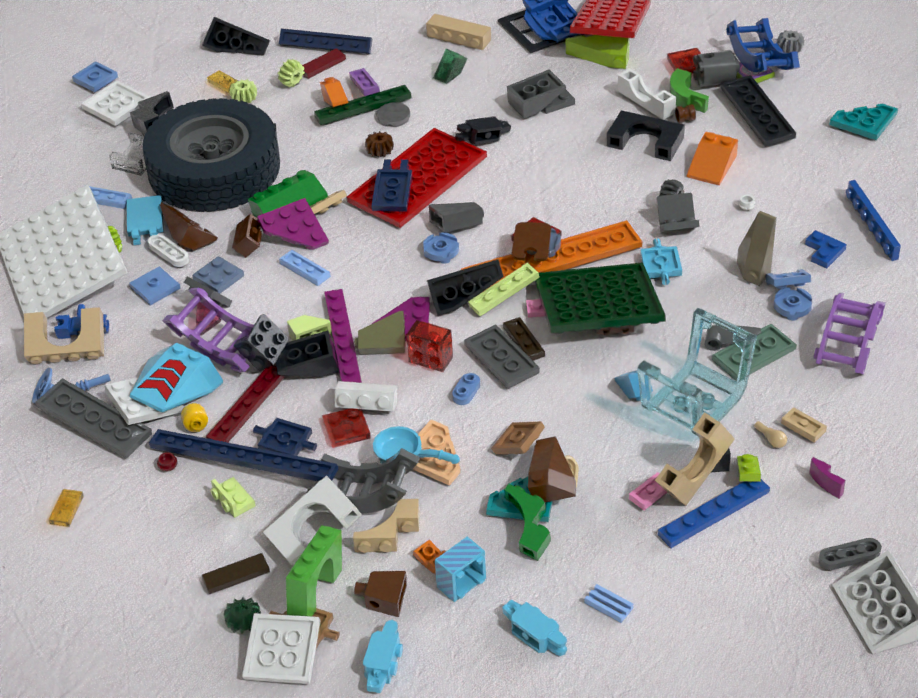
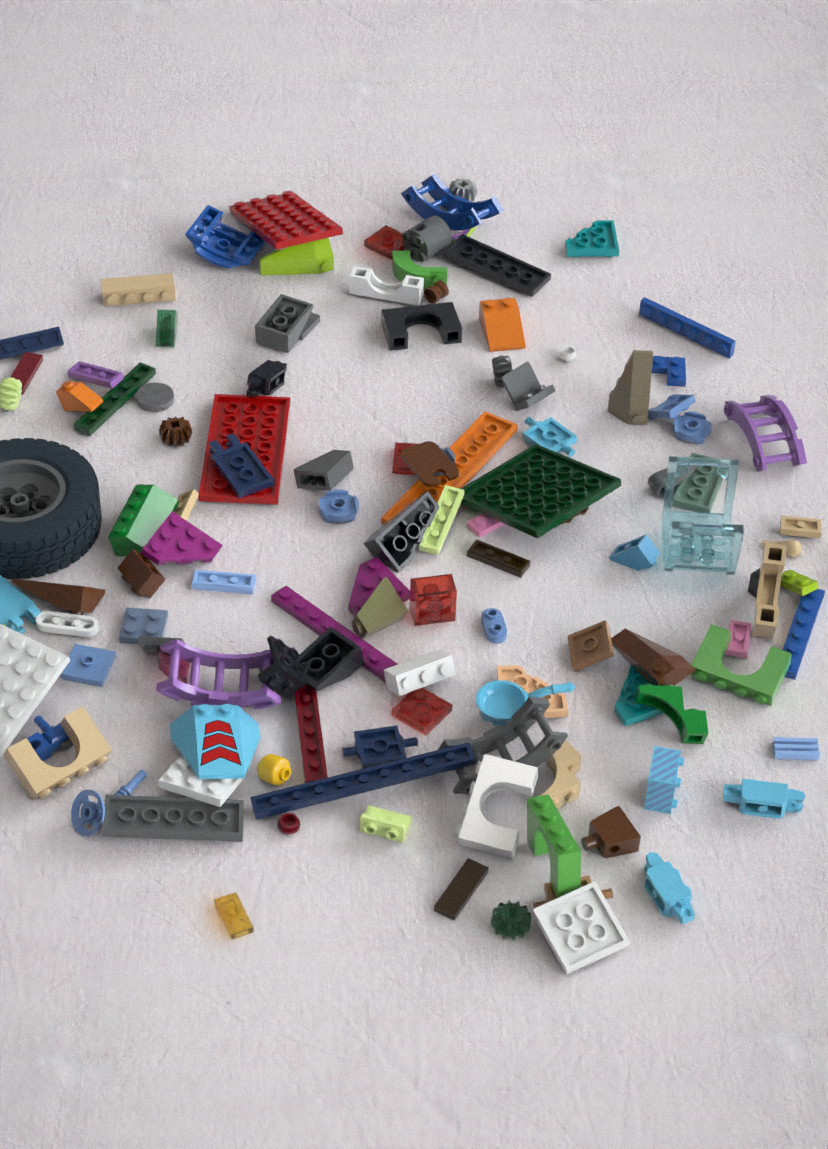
camera: 40 degrees left, 0 degrees up
(306, 326) = (298, 634): yellowish green slope -> none
(427, 554) = (622, 787): orange slope -> none
(502, 356) = (498, 581): dark grey plate -> none
(523, 34) = (187, 261): black door -> none
(631, 535) = (760, 685): none -> bright green arch

